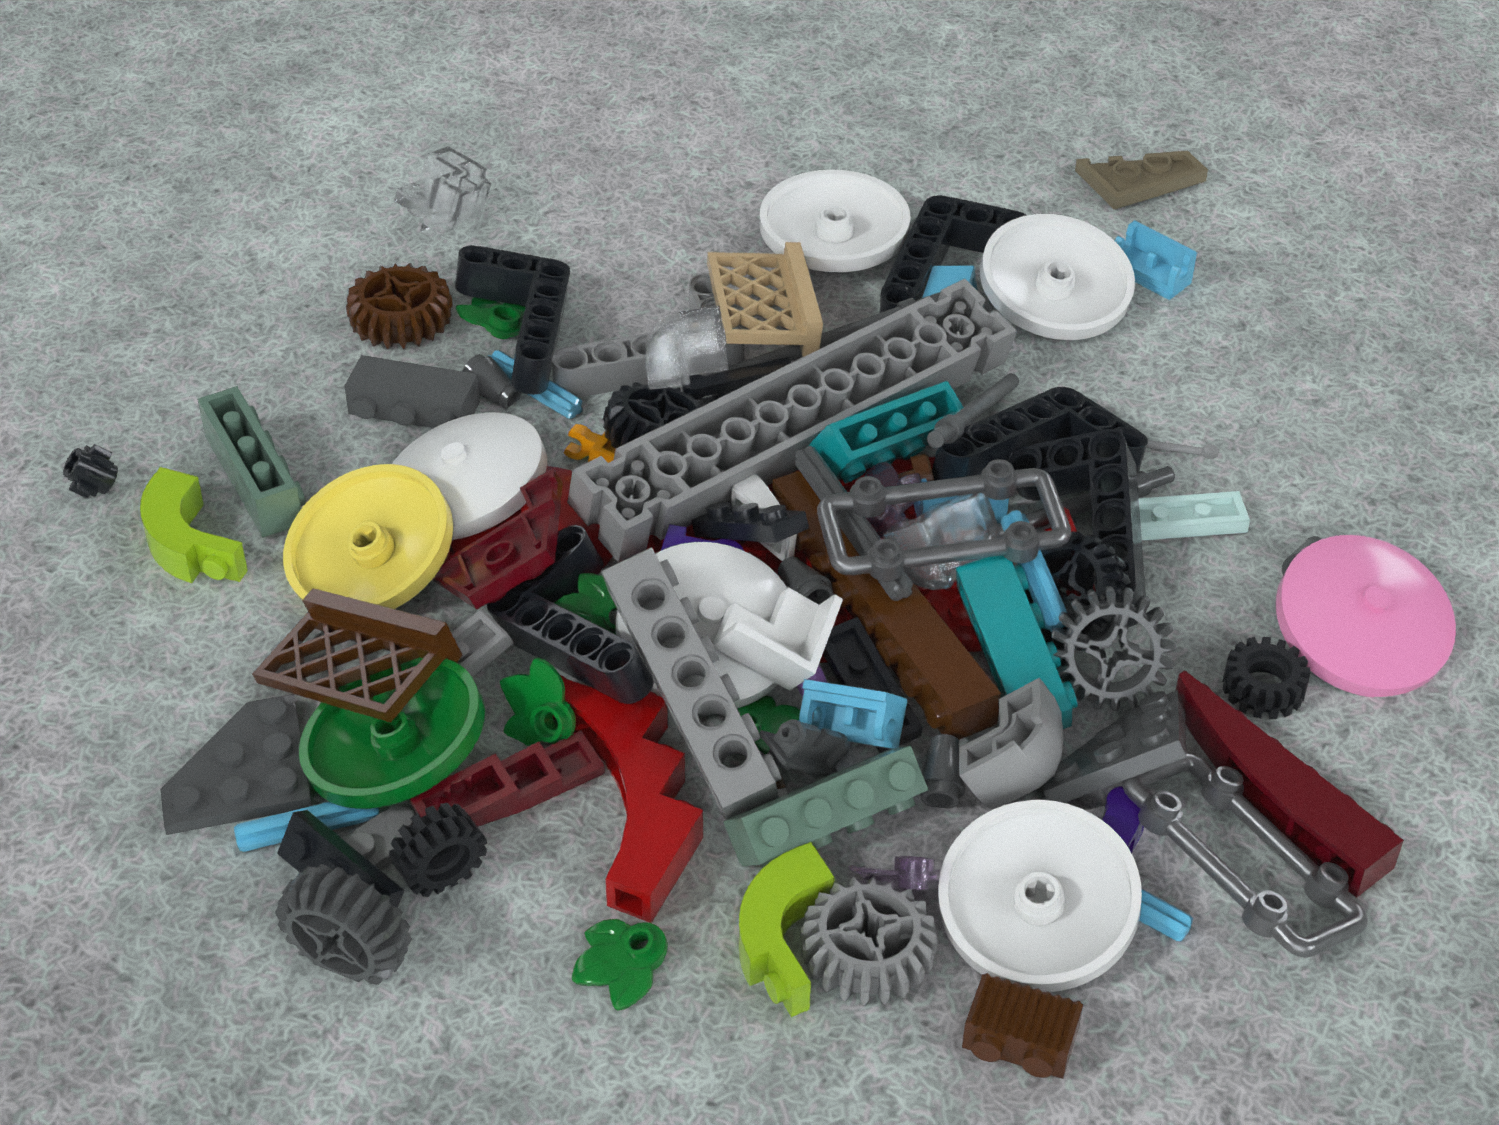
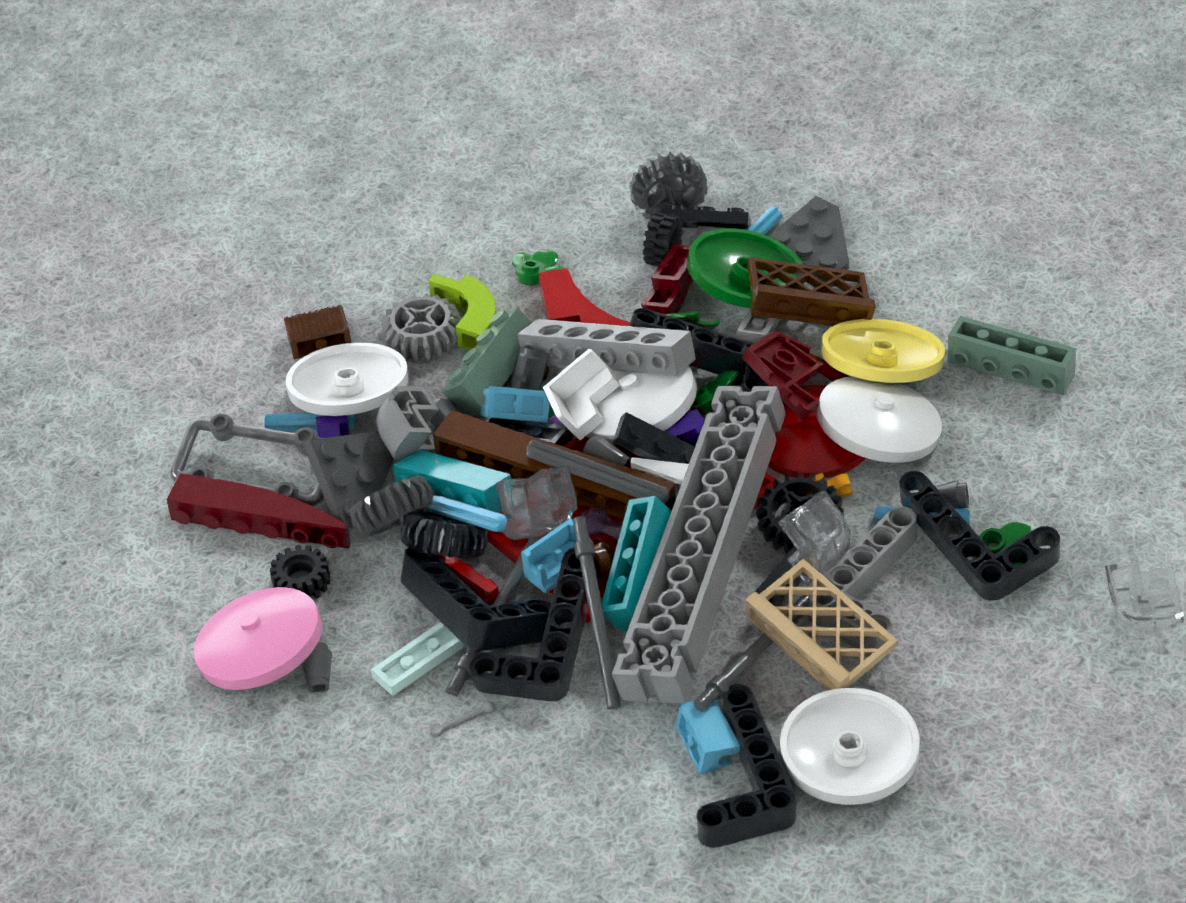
camera: 150 degrees right, 0 degrees up
(90, 471) = (1095, 307): black gear -> none
(166, 512) = (1000, 303): lime arch -> none
(399, 305) = (1073, 507): reddish brown gear -> none
(410, 392) = (981, 455): dark grey brick -> none
(910, 872) = (431, 357): clear purple plate -> none
(997, 482) = (520, 517): flat silver bar -> none
(1057, 276) = (640, 788): white dish -> none
(1158, 260) = (585, 869): medium azure hinge -> none

